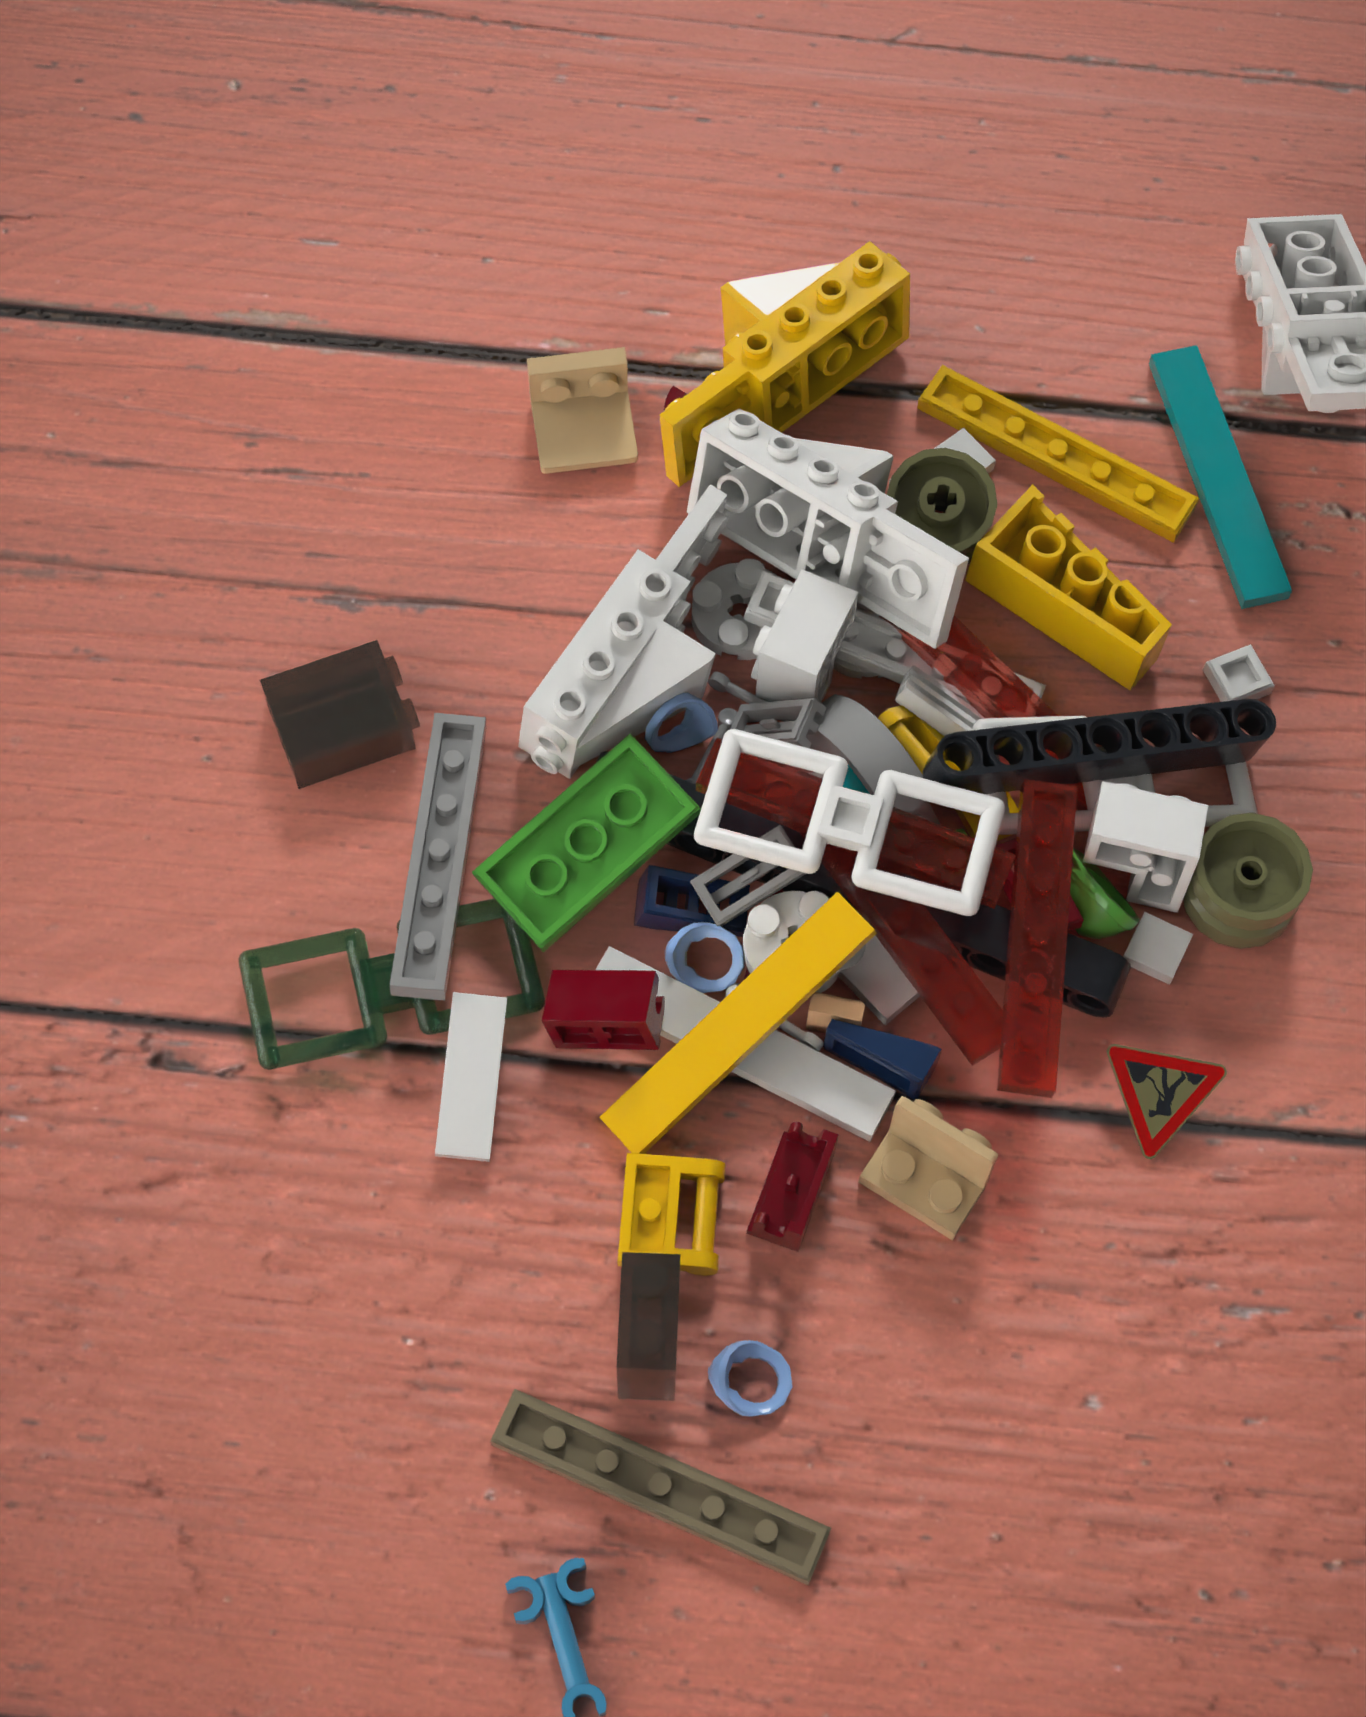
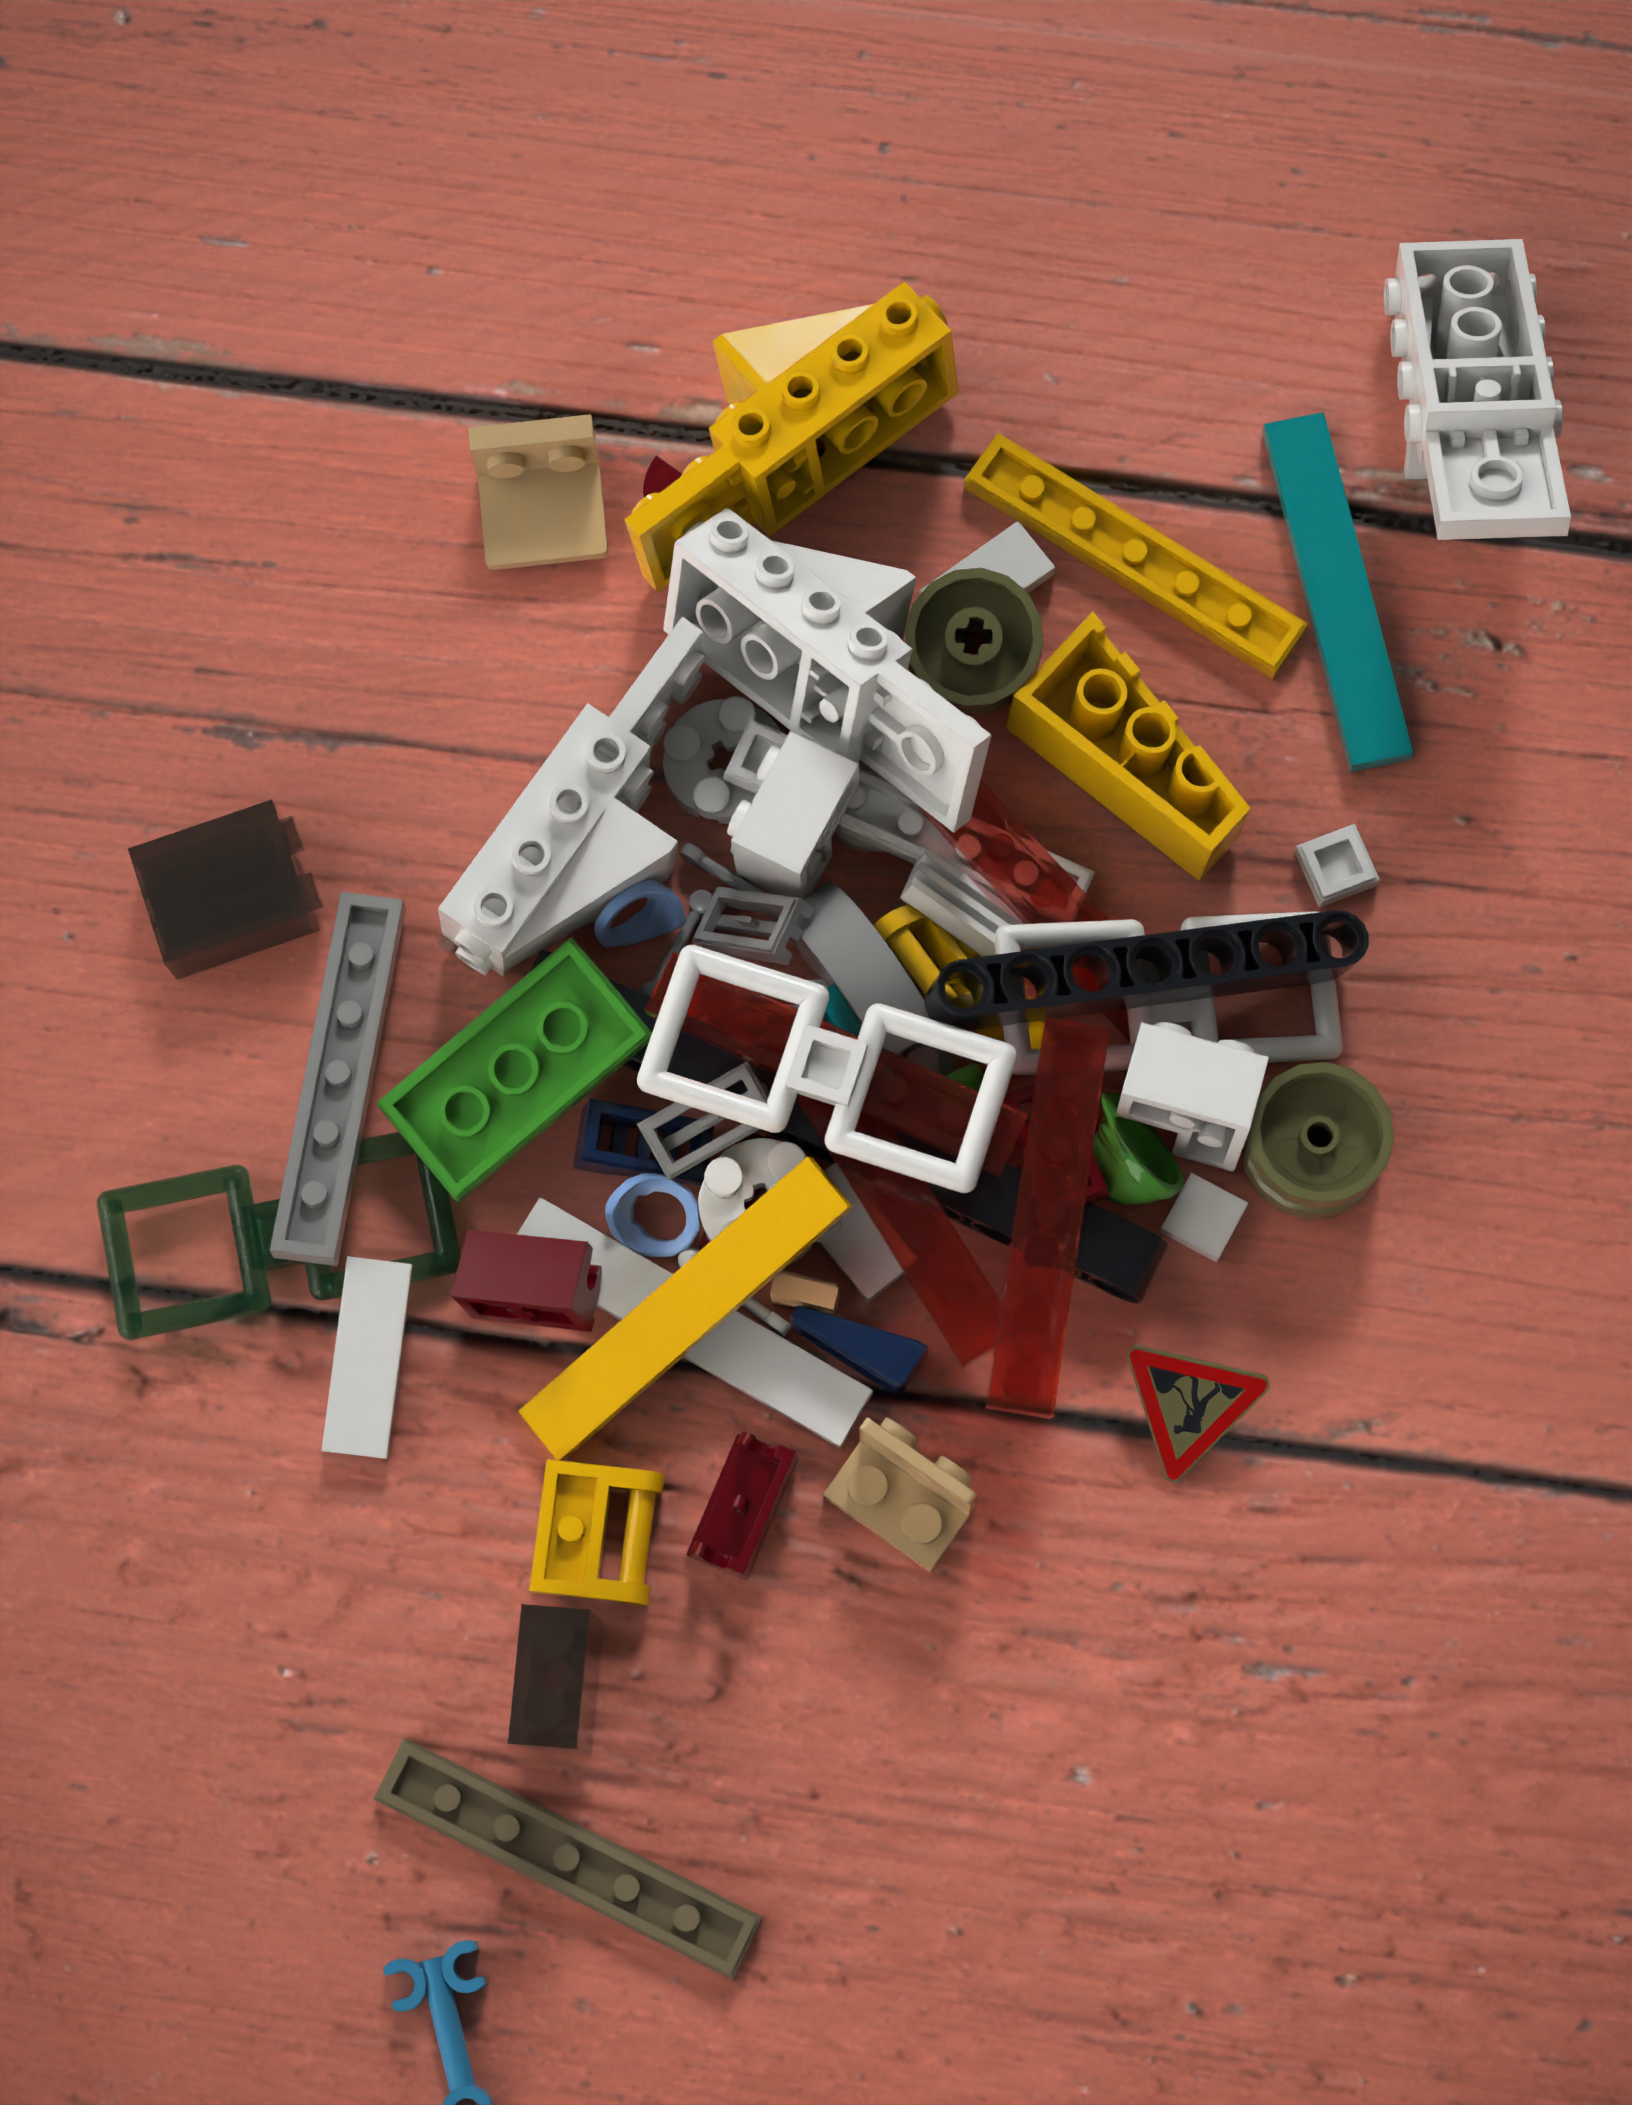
camera: 10 degrees right, 10 degrees up
(736, 1353) = (666, 1703): light blue piece -> none

